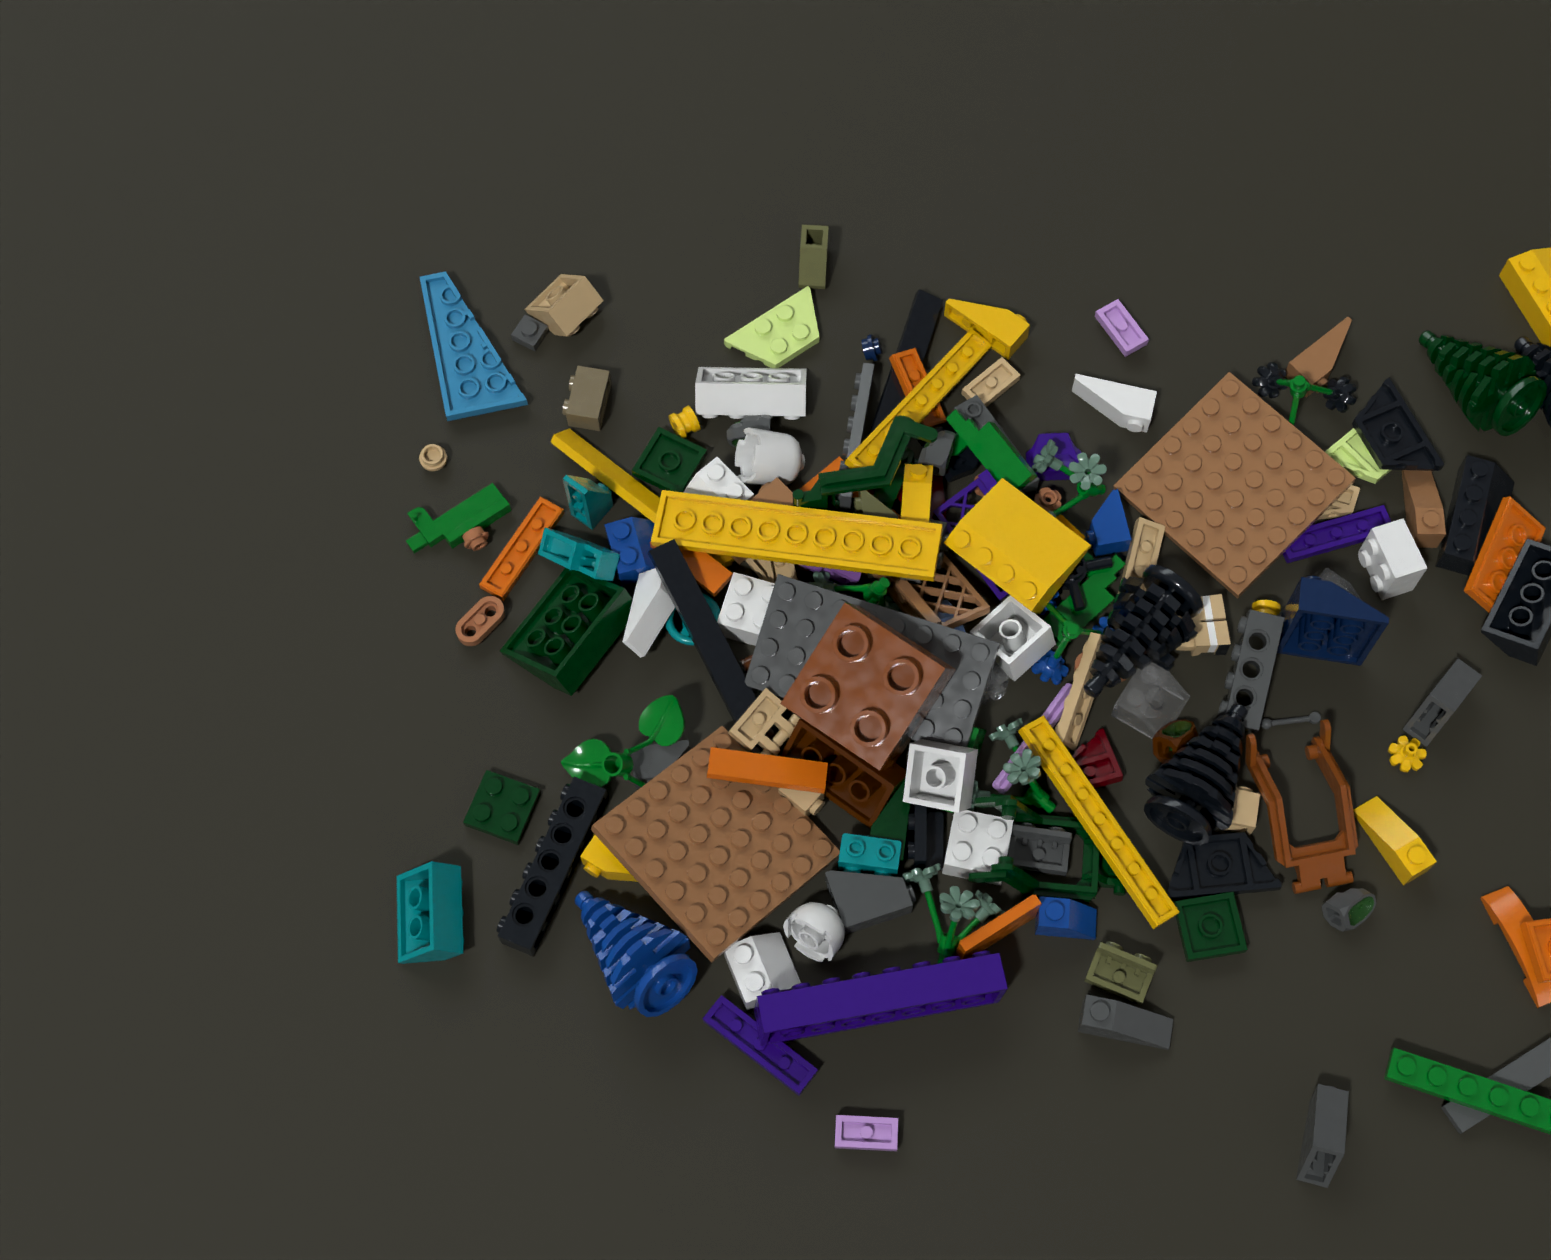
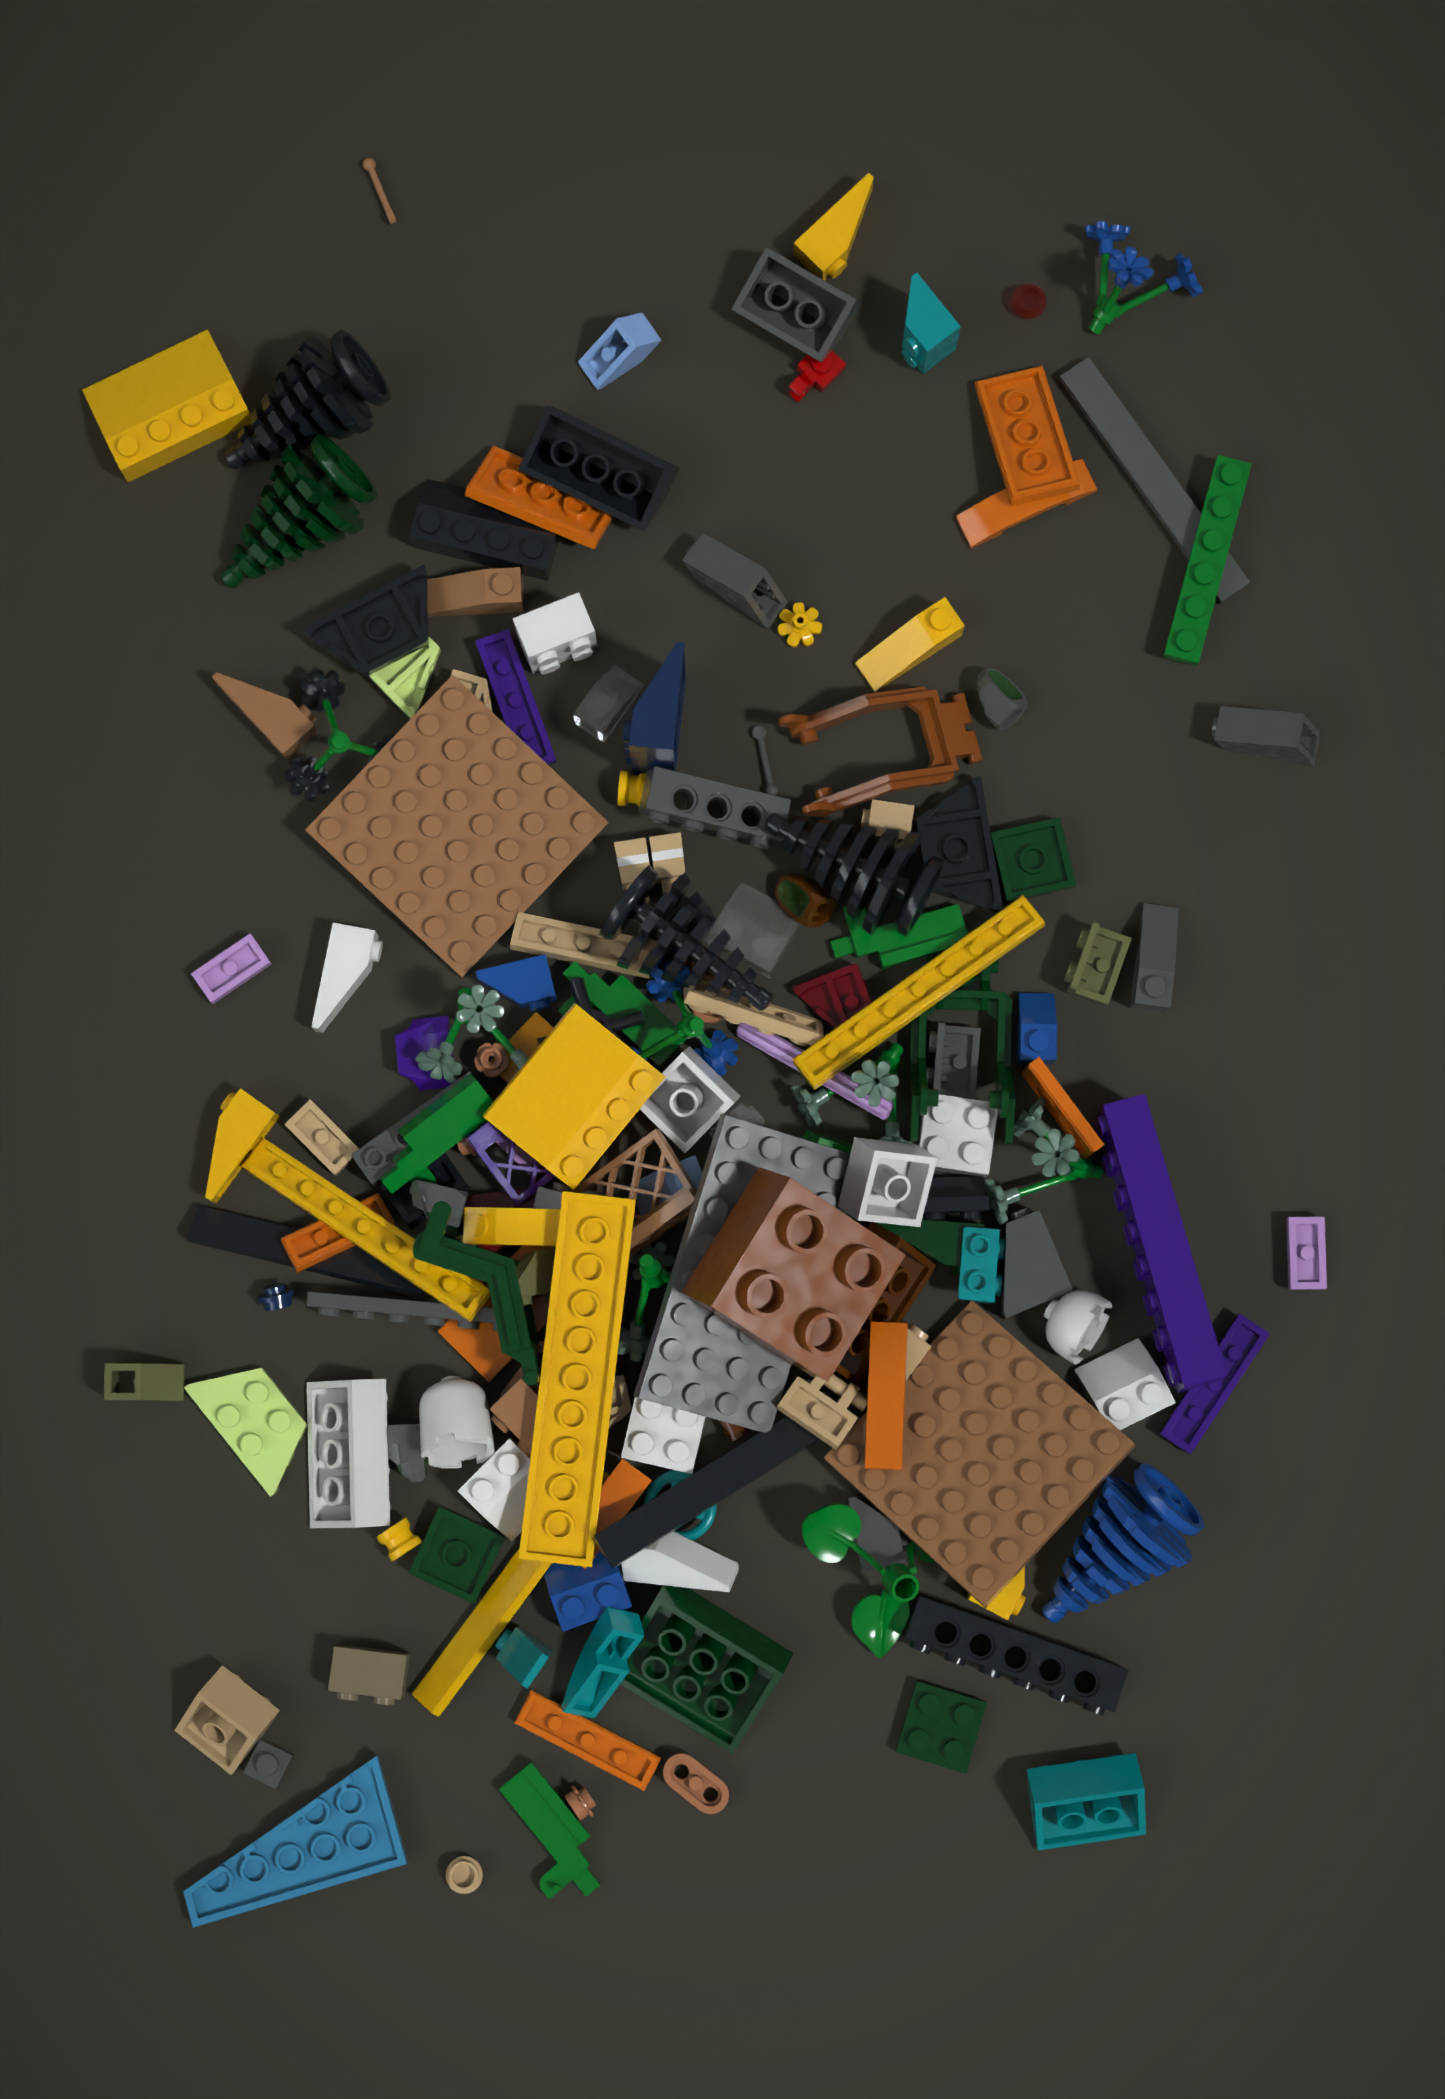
camera: 95 degrees left, 15 degrees up
(1139, 829) = (930, 936): none -> green piece

